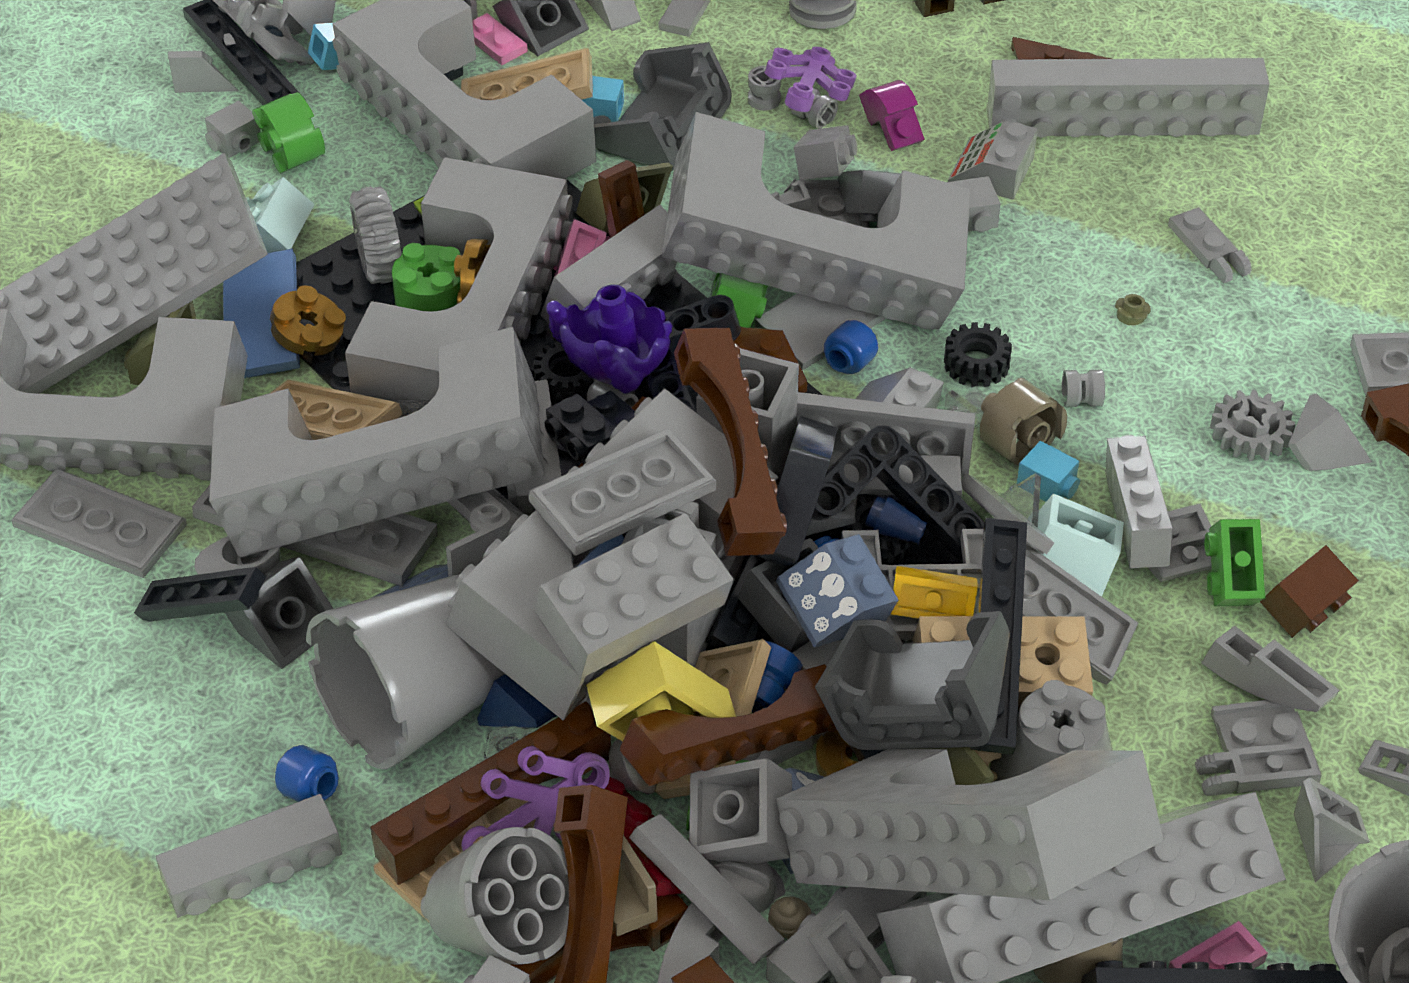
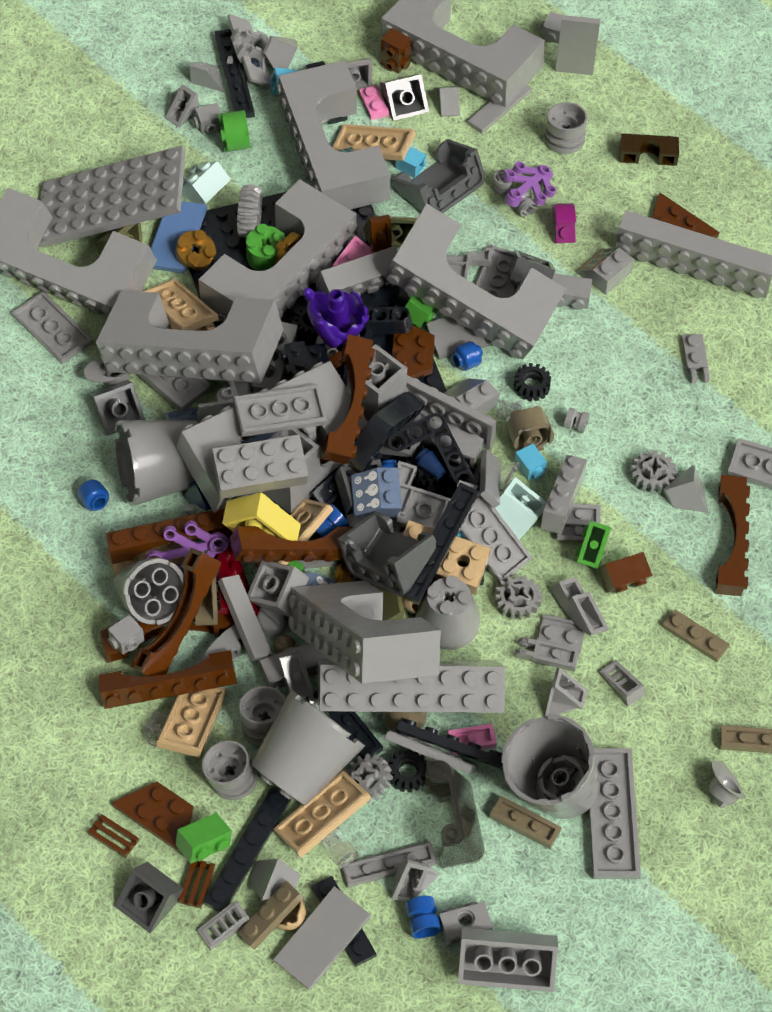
camera: 20 degrees right, 10 degrees up
(178, 122) = (182, 106): none -> light grey slope
(201, 594) = (79, 386): black plate -> none
(249, 856) = (50, 526): light grey brick -> none
(825, 152) = (511, 235): light grey brick -> none
(933, 593) = (422, 508): yellow panel -> none
(1132, 309) = (630, 386): olive plate -> none
(1155, 692) = (518, 596): none -> light grey gear

